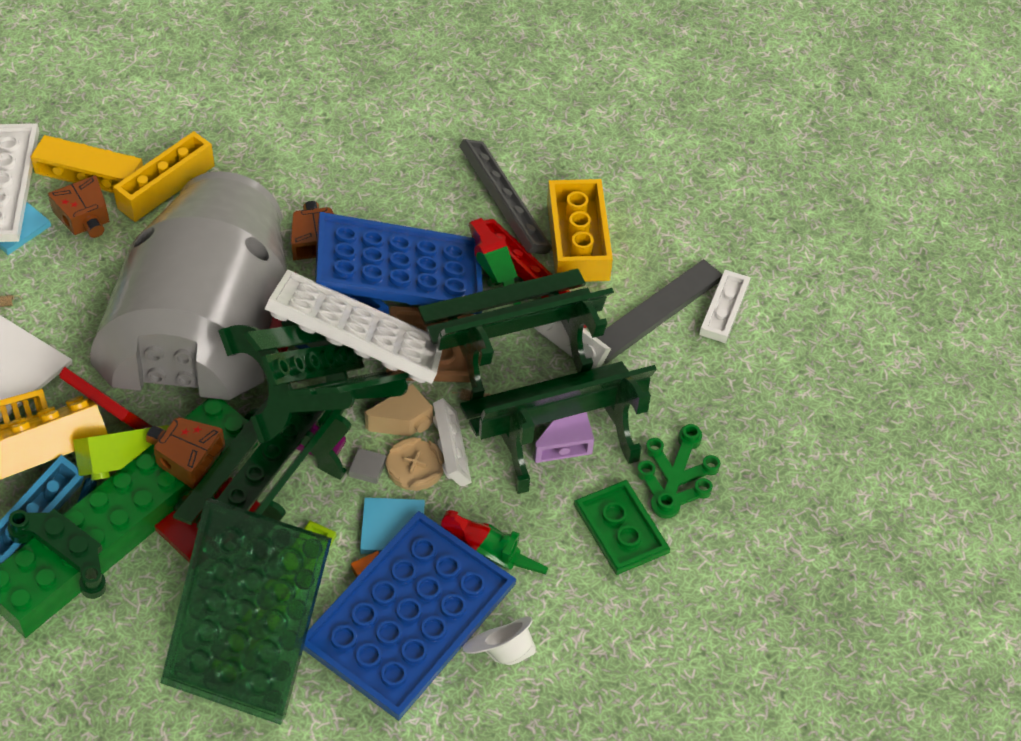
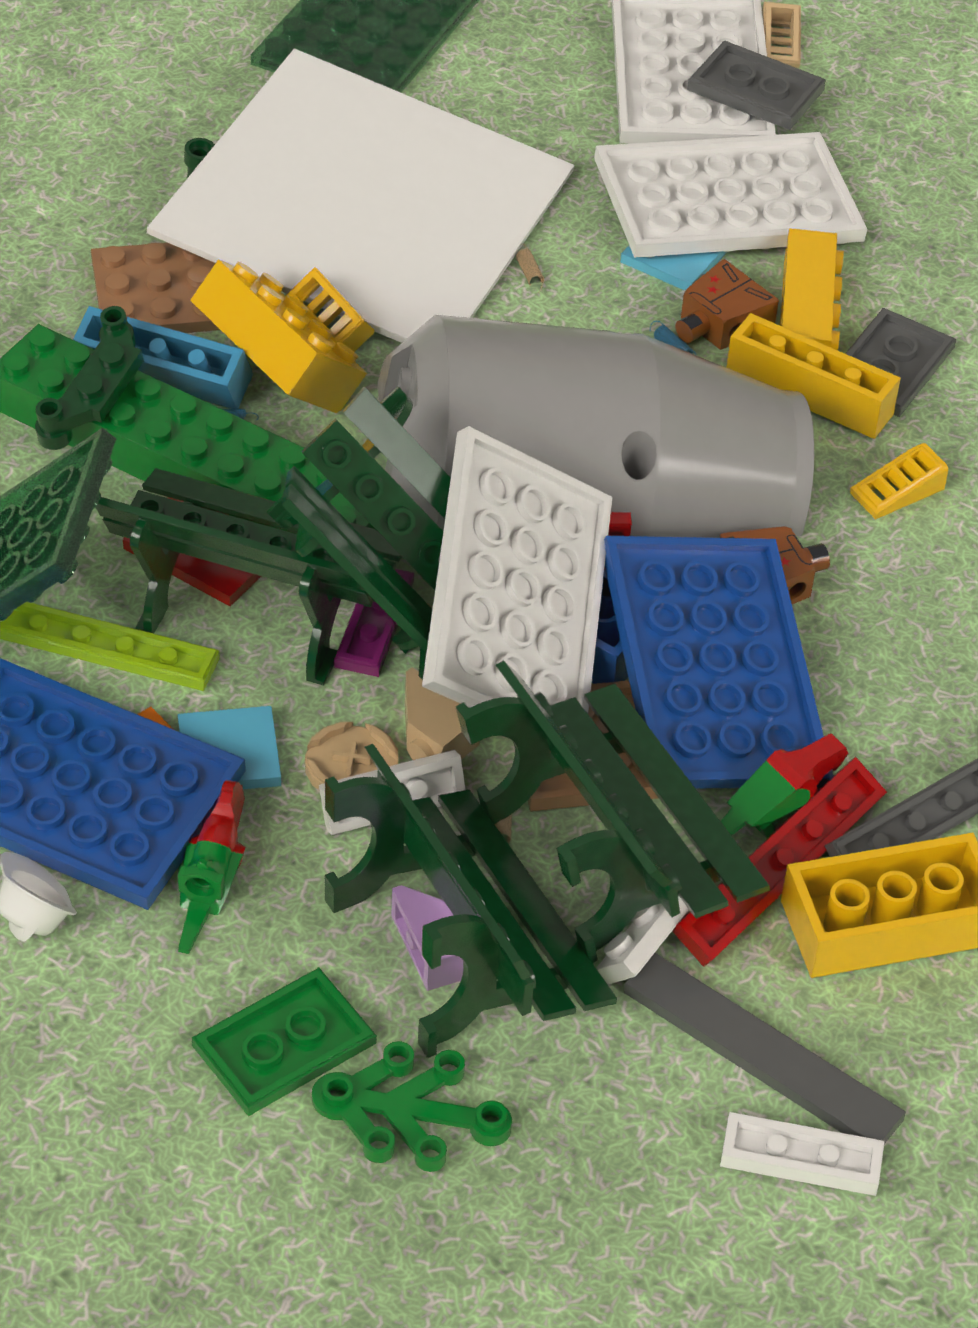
camera: 80 degrees right, 5 degrees down
(98, 241) = (665, 335): none -> dark azure piece
(103, 399) = (353, 370): red tile -> none
(109, 452) = (257, 392): lime slope -> none
(143, 137) = (903, 350): none -> dark grey tile
(186, 448) = (263, 455): dark orange torso -> none
(253, 146) = (920, 464): none -> yellow slope
(367, 465) = (333, 703): light grey tile -> none

